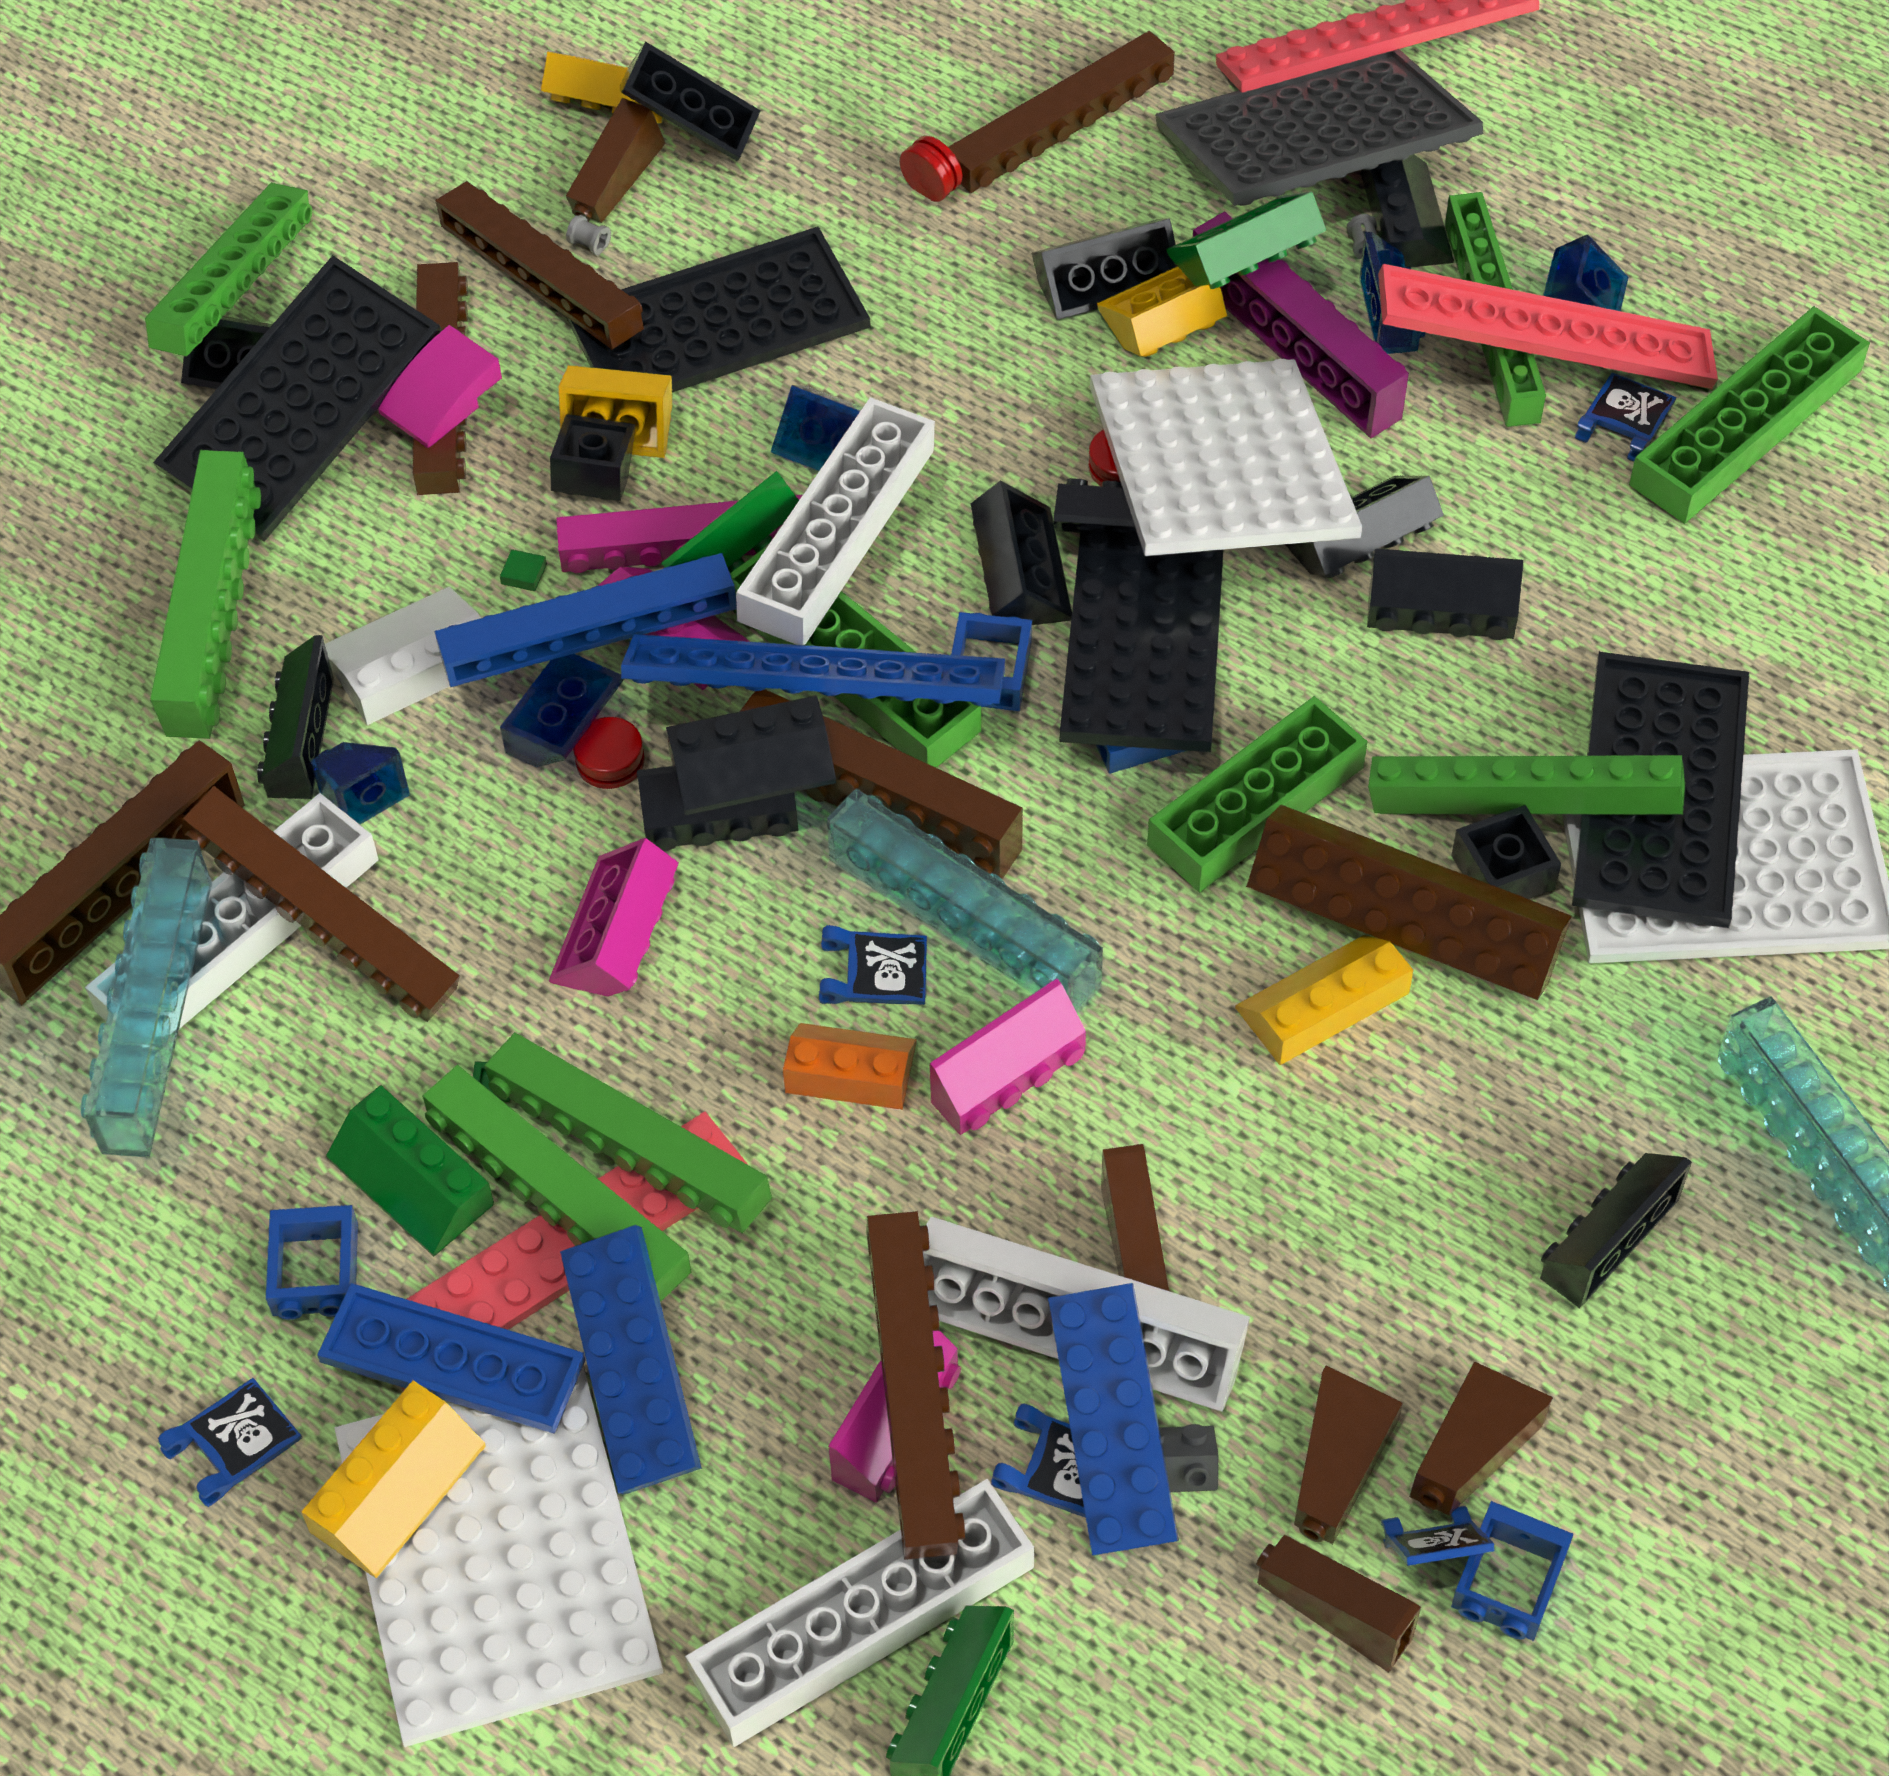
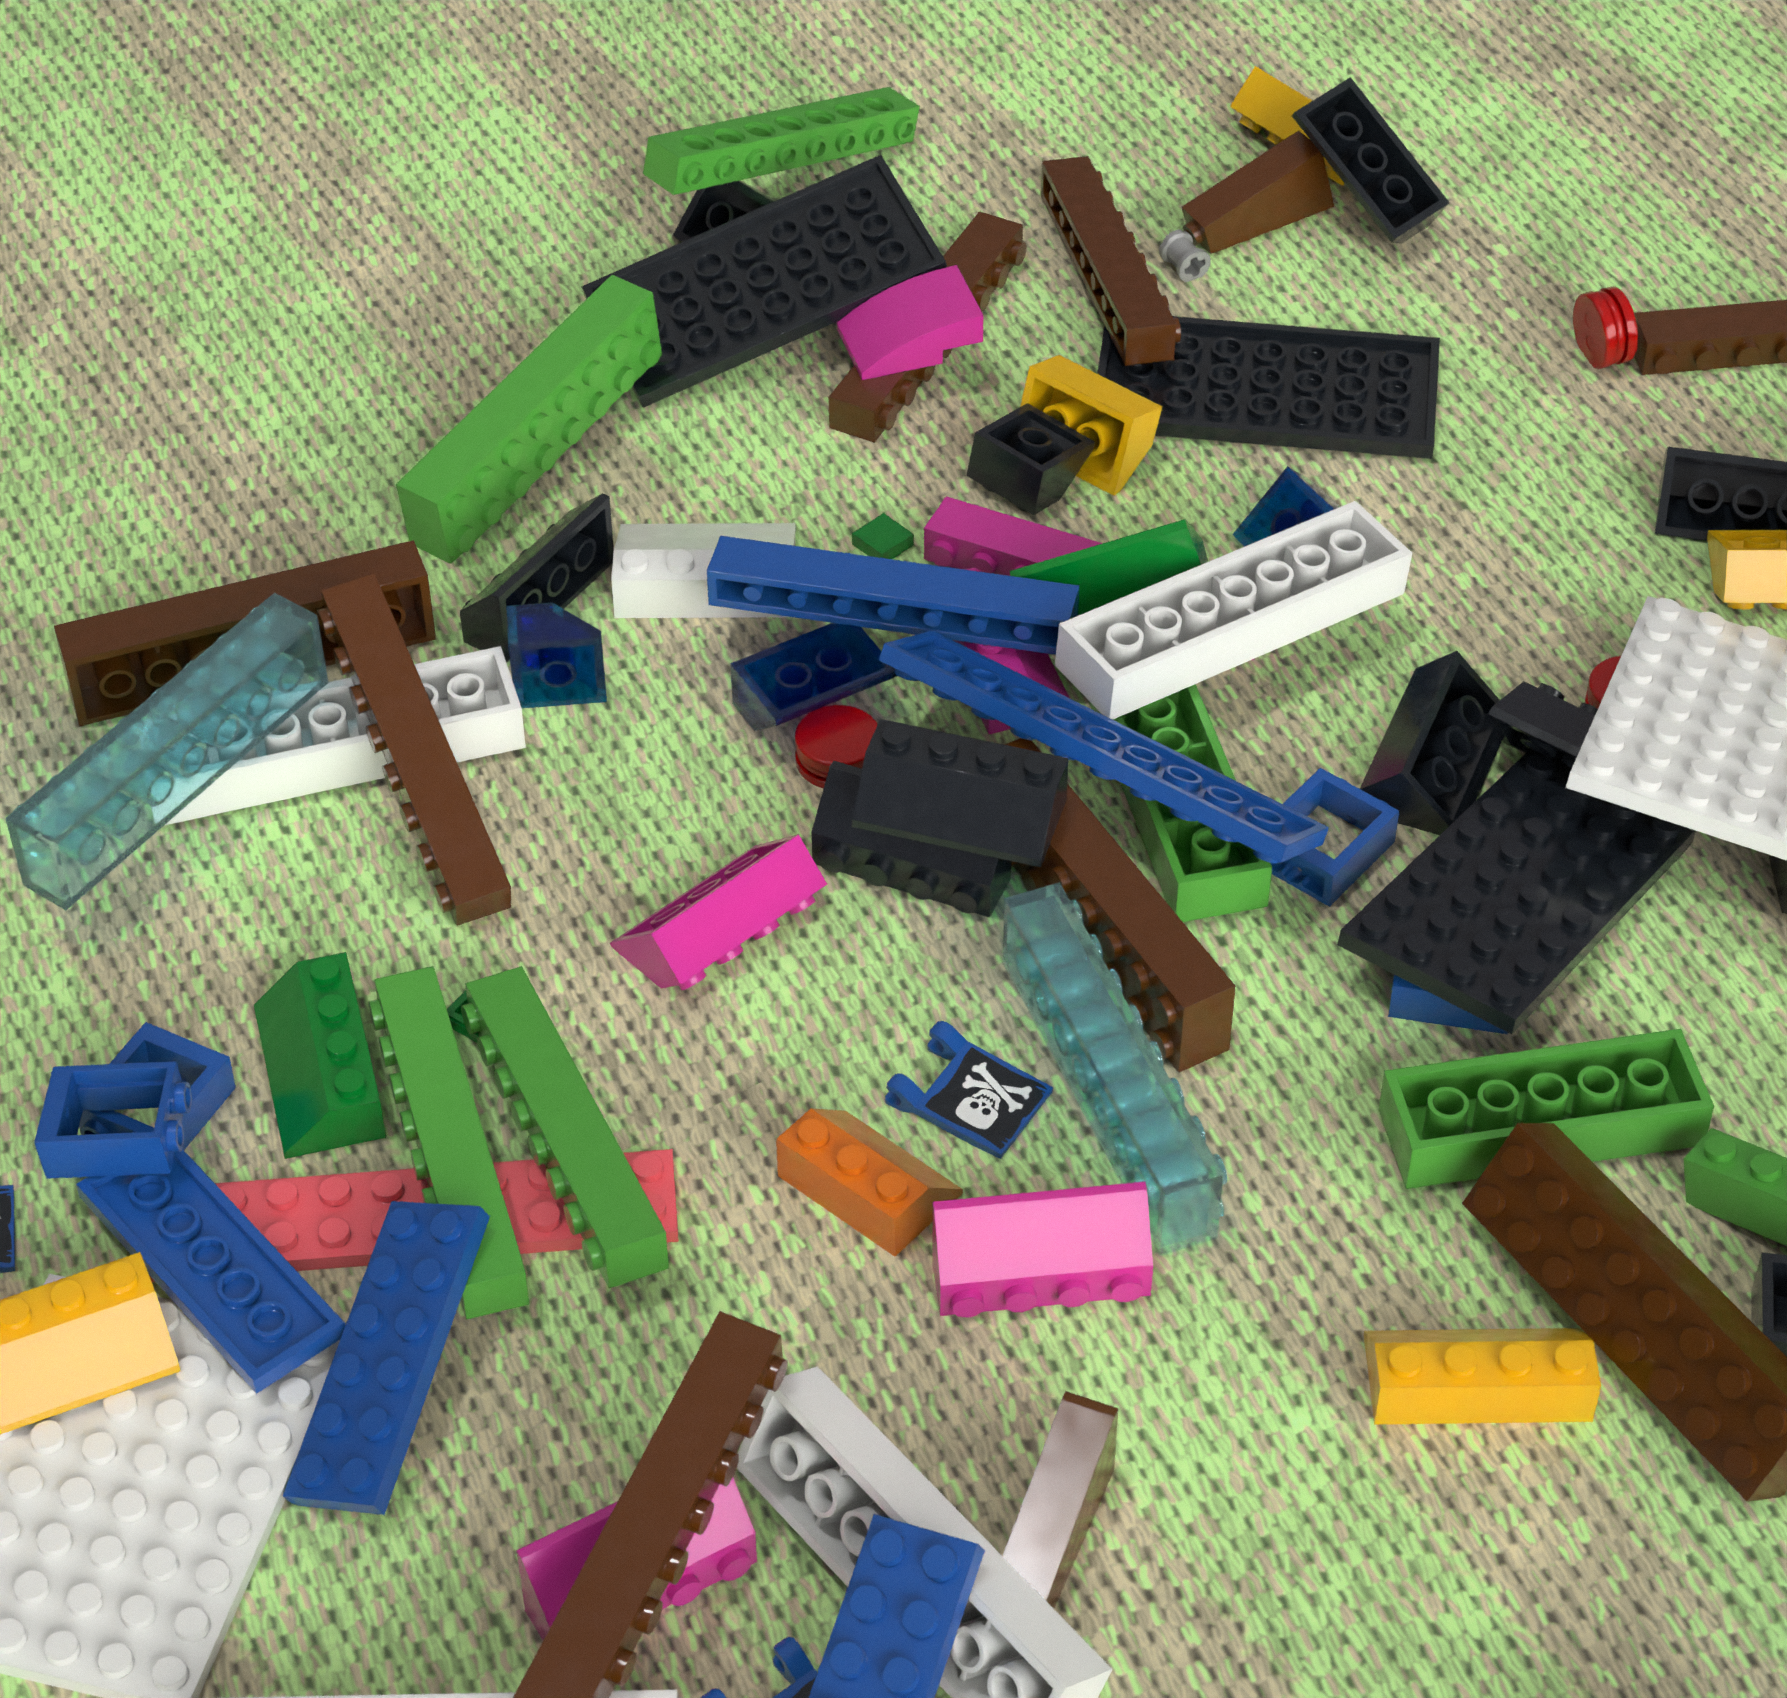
camera: 30 degrees right, 10 degrees down
(302, 1269) = (111, 1088): none -> blue window

